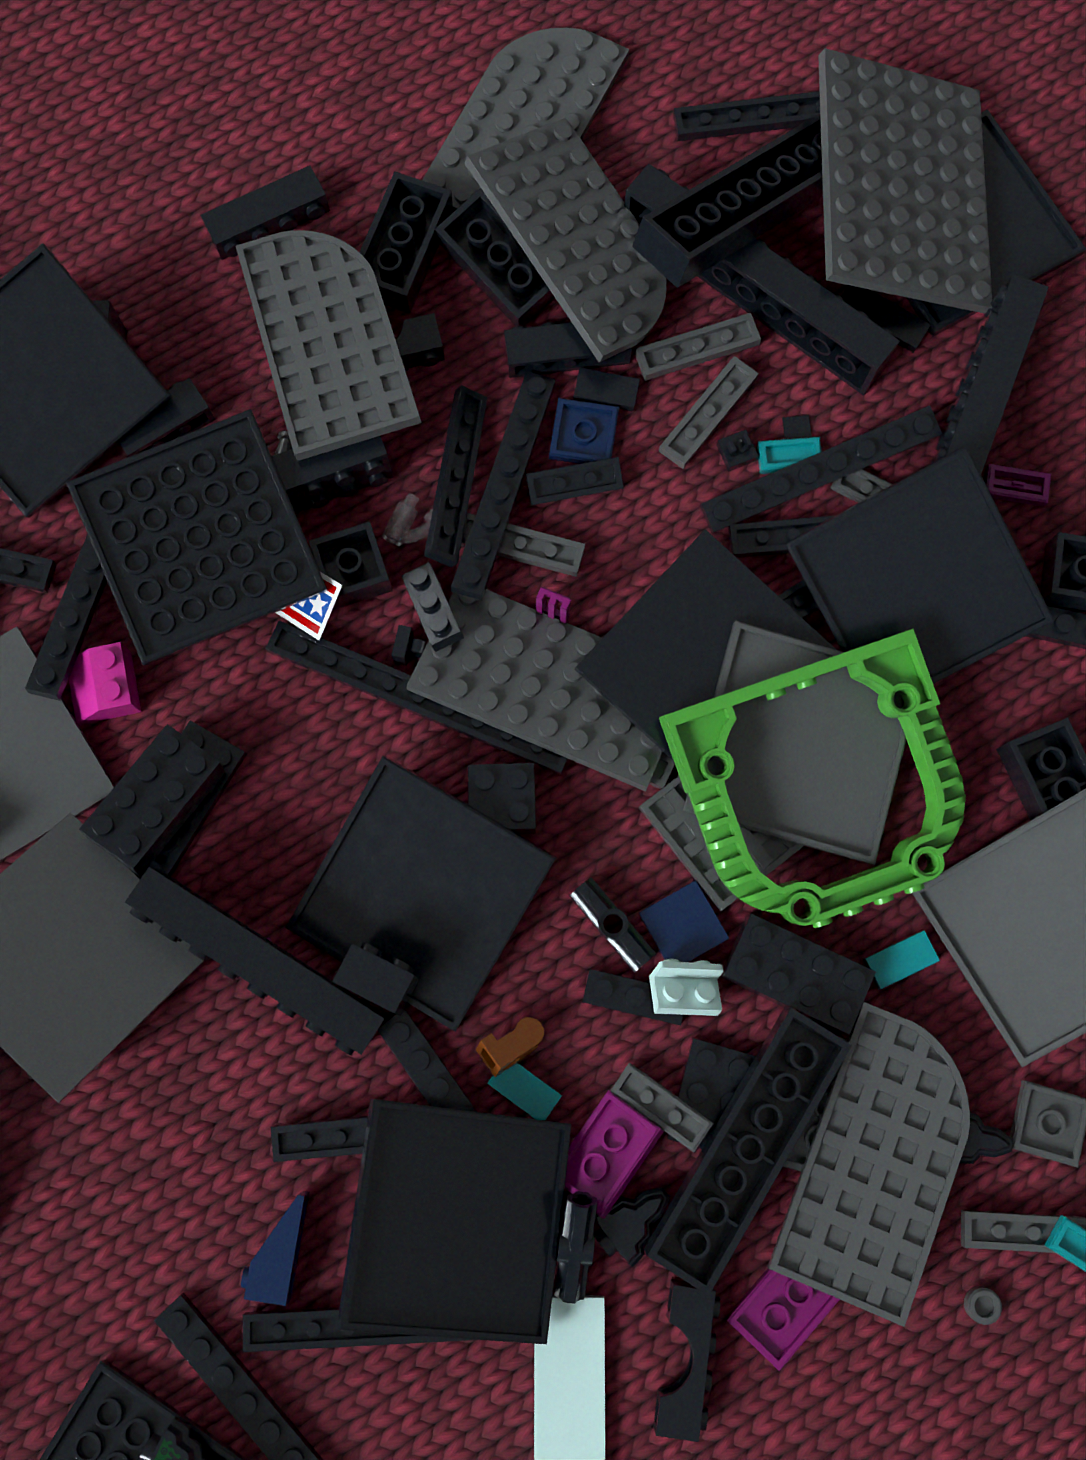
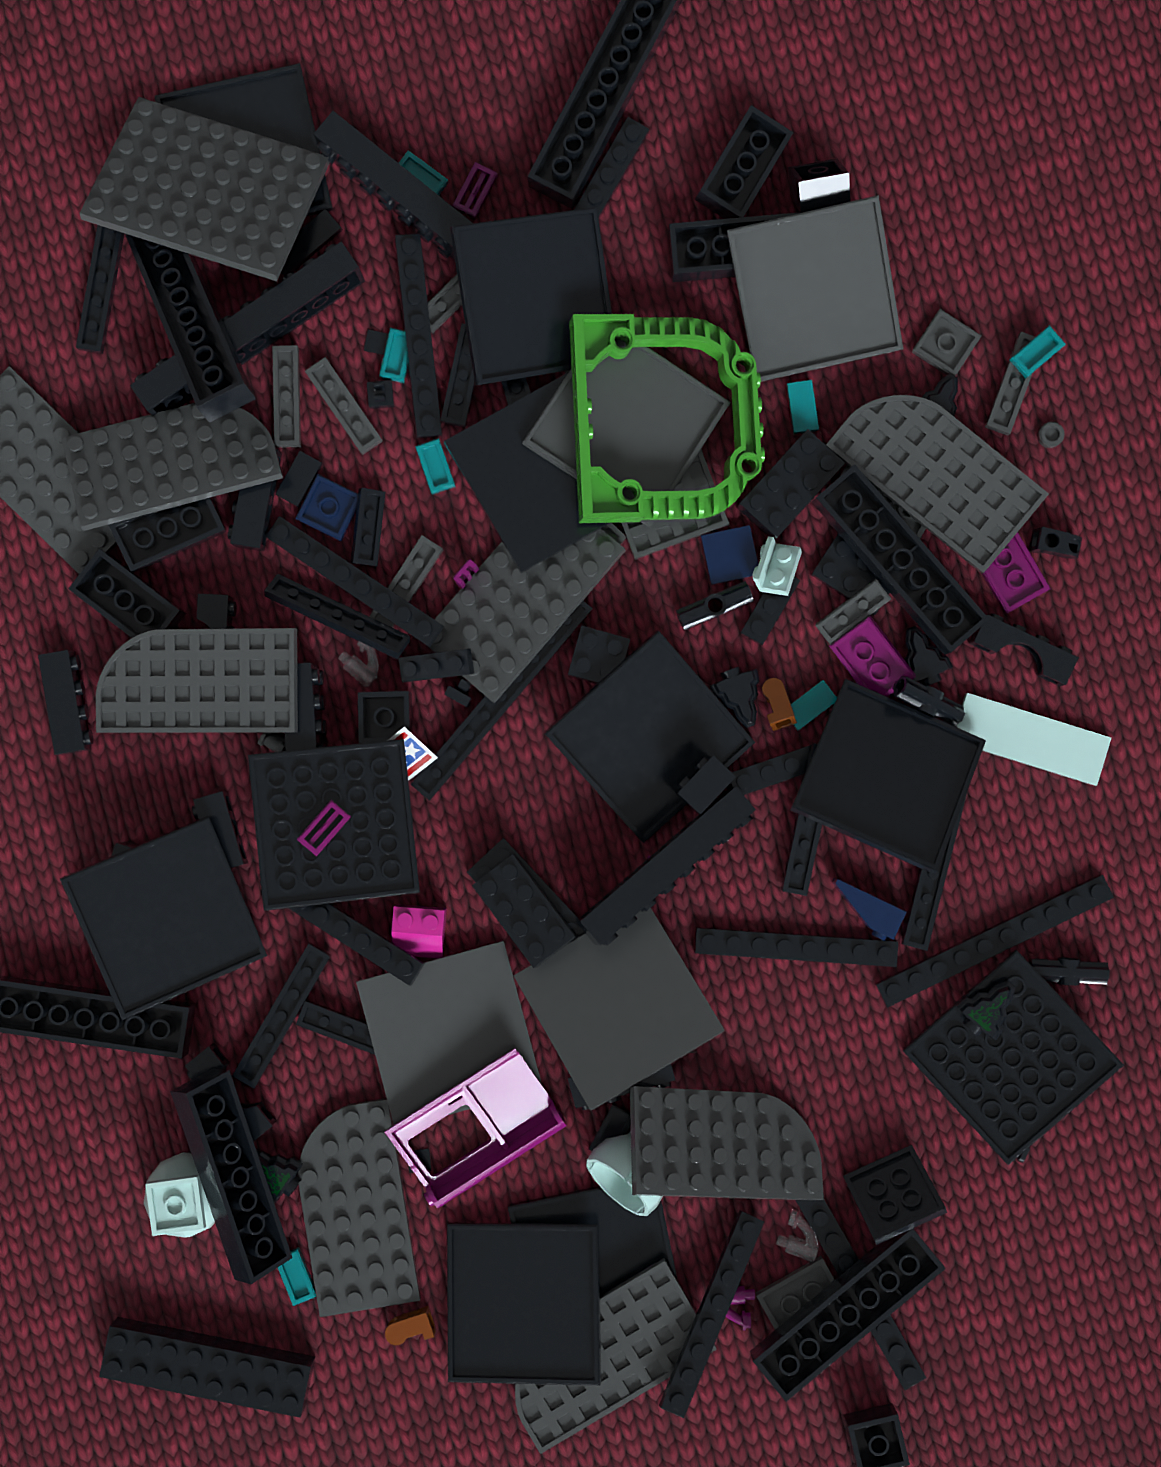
camera: 70 degrees left, 10 degrees up
(204, 1172) = (796, 947): none -> black plate
(213, 534) = (338, 810): none -> magenta tile
(510, 990) = (738, 693): none -> black rock
(672, 537) = (435, 466): none -> teal tile
(842, 1358) = (1055, 543): none -> black leg
(1013, 421) = (424, 172): none -> teal tile

